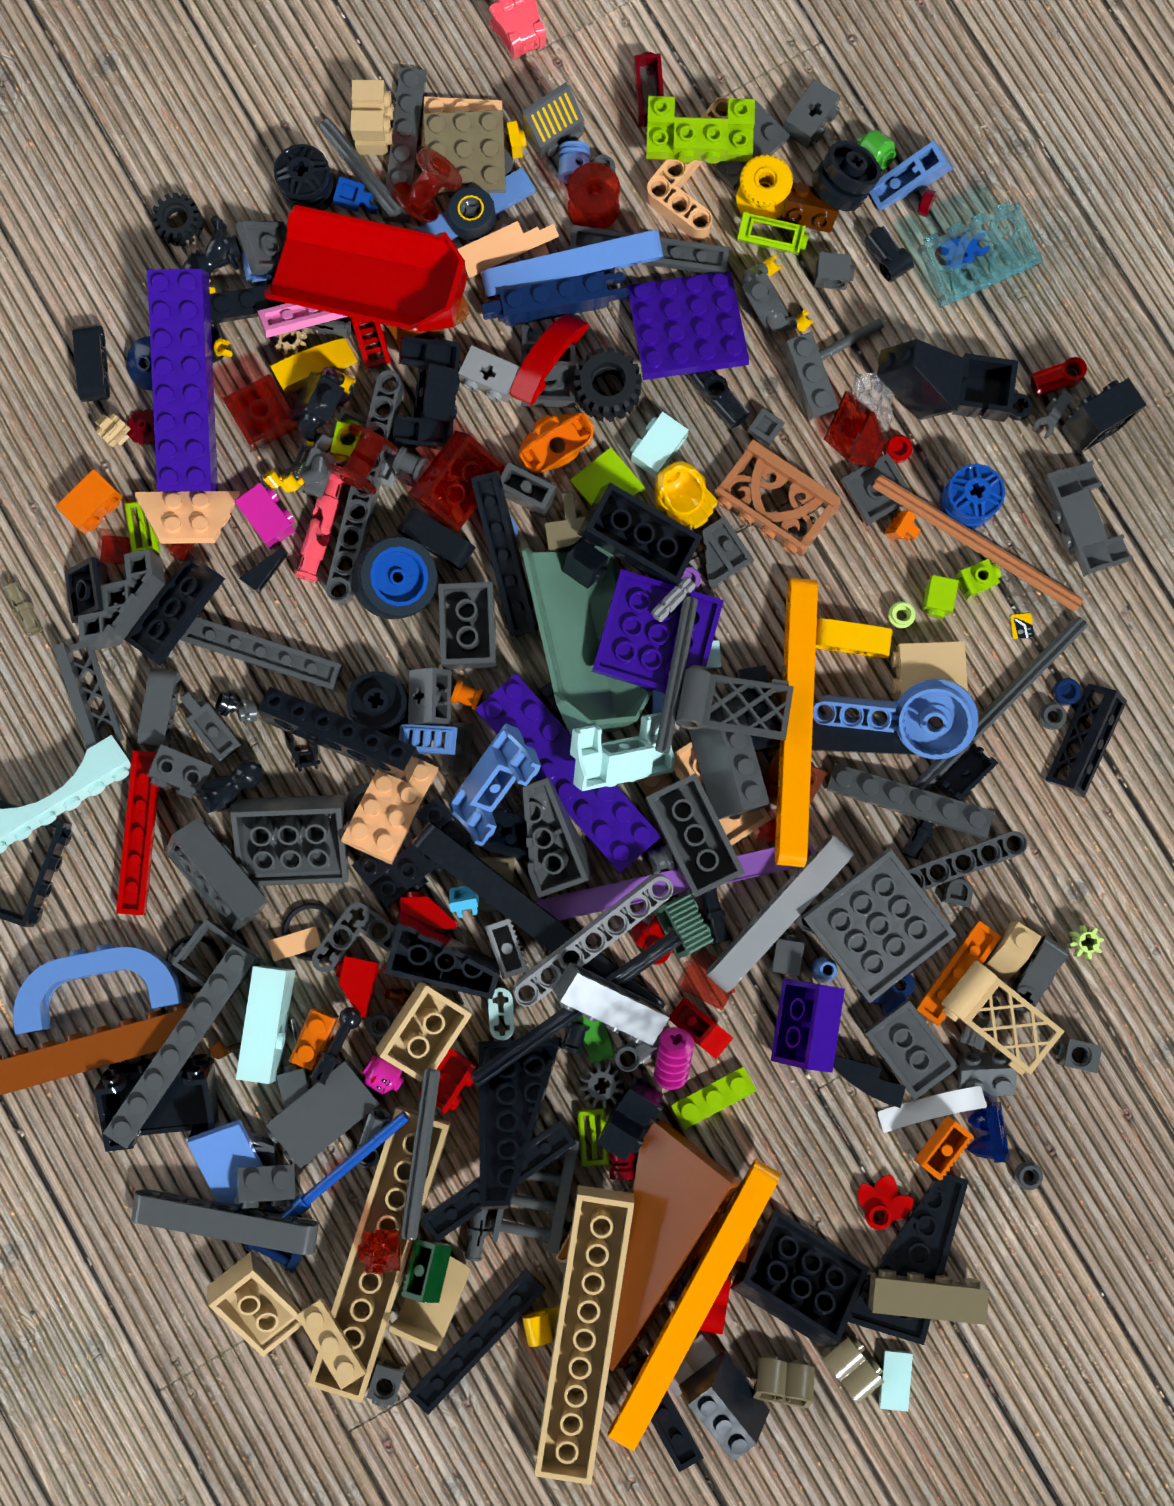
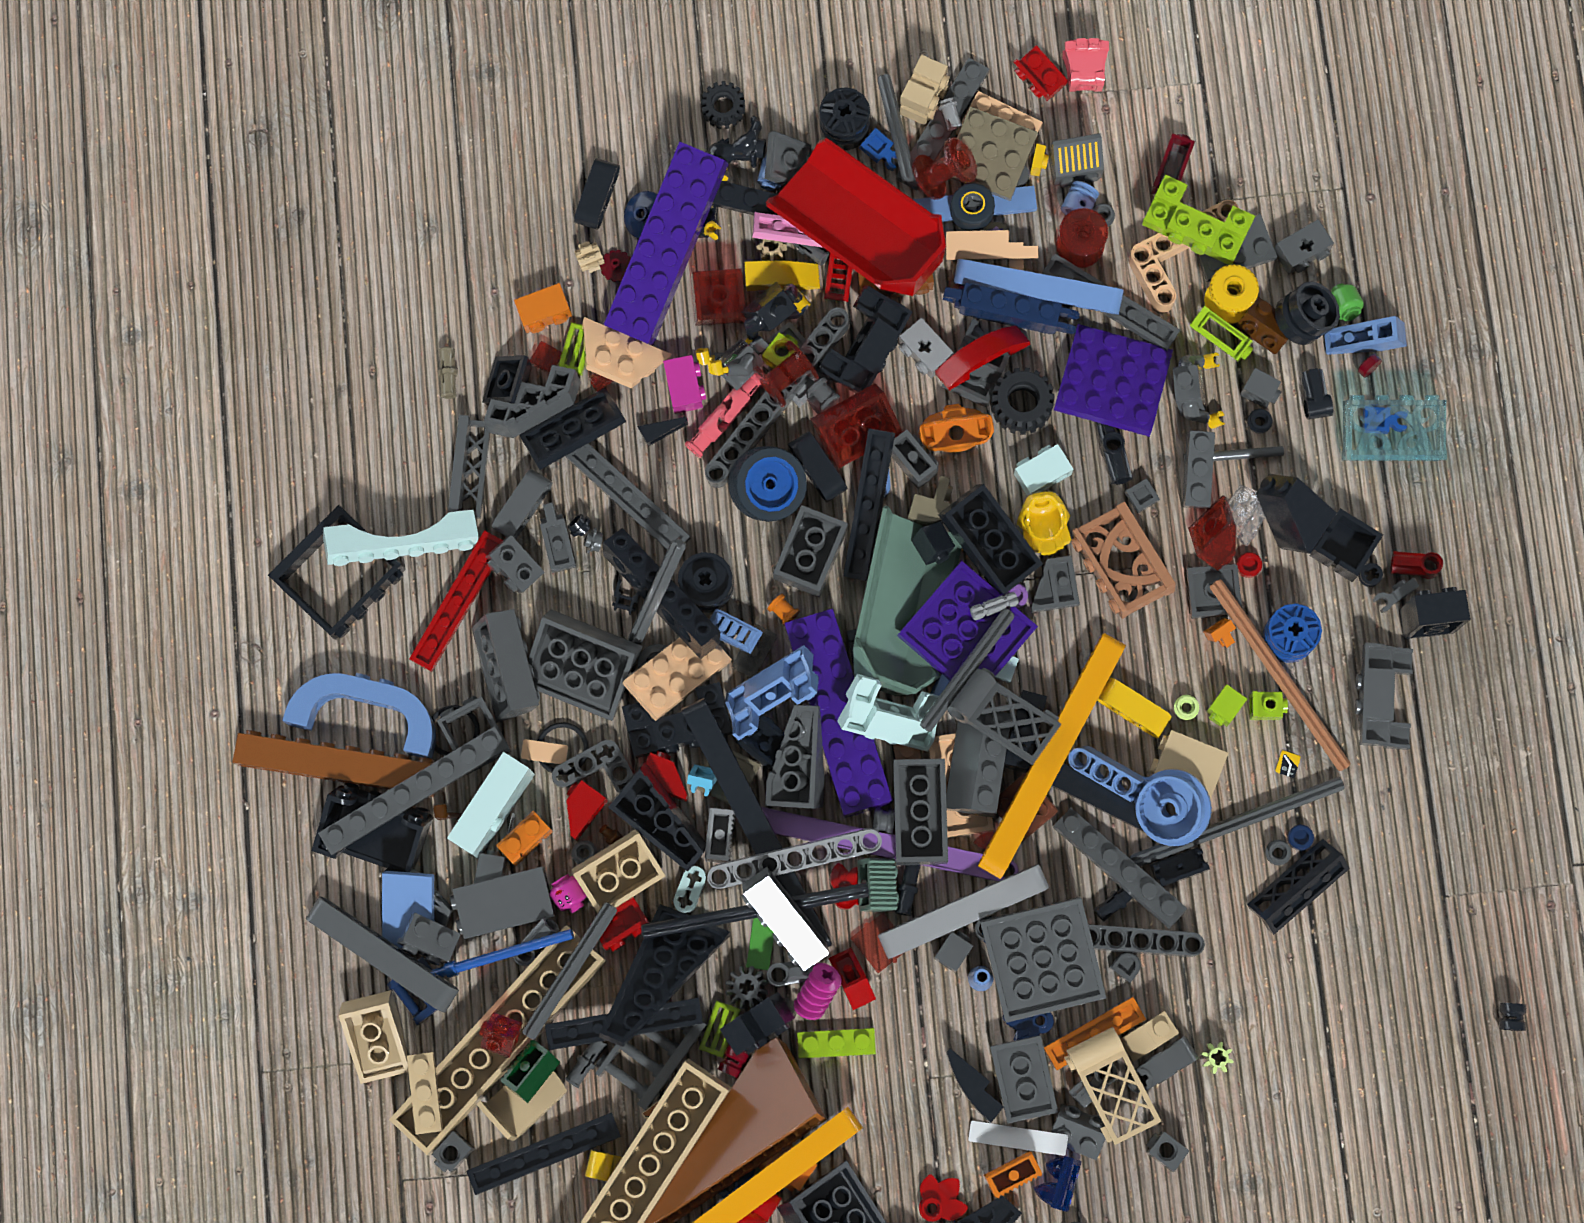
camera: 30 degrees right, 5 degrees down
(223, 791) = (543, 597): black animal -> none
(333, 734) = (657, 590): none -> dark grey axle
(349, 1019) = (561, 834): black pin -> none
(407, 129) = (950, 113): none -> light grey pin
(429, 697) = (751, 596): dark grey brick -> none
(478, 53) = (1041, 73): none -> red bracket
(574, 1037) = (742, 936): black bush -> none
(603, 470) = (989, 472): lime tile -> none
(807, 1025) = (944, 1015): dark purple brick -> none
(846, 296) = (1262, 414): none -> black plate

